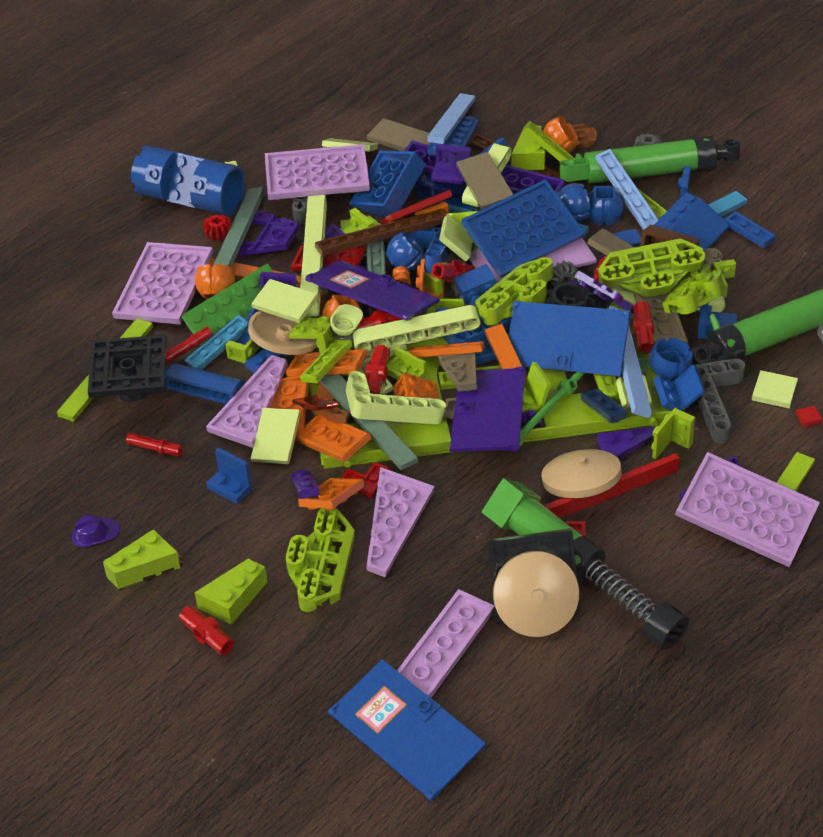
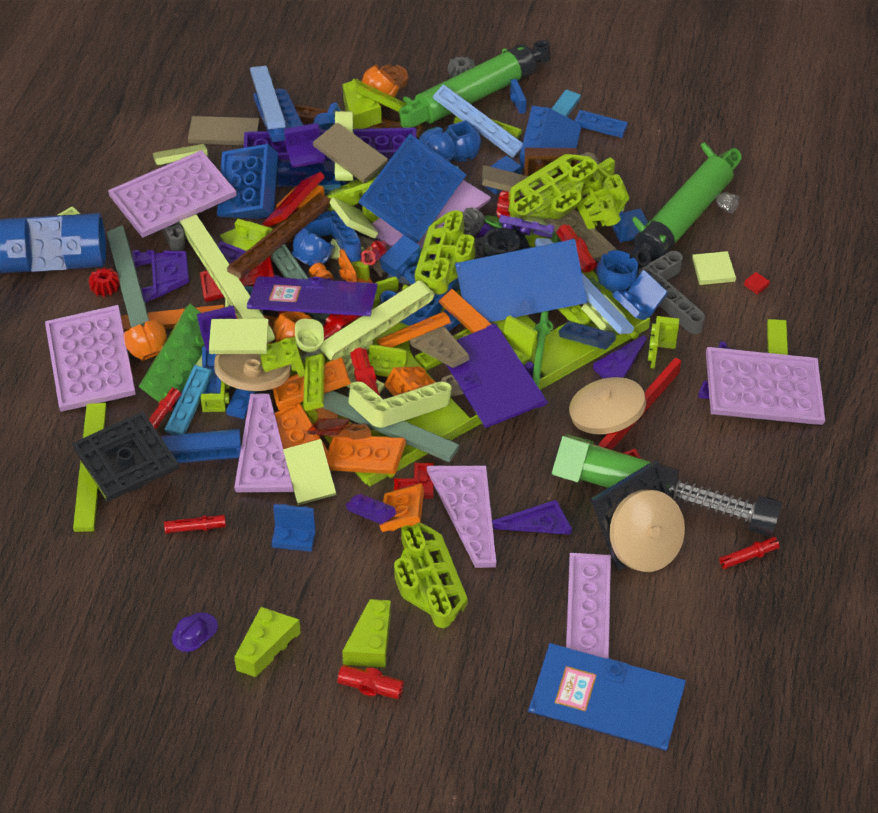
camera: 30 degrees left, 5 degrees up
(452, 550) = (542, 519): none -> dark purple wing
(632, 655) = (758, 549): none -> red pin

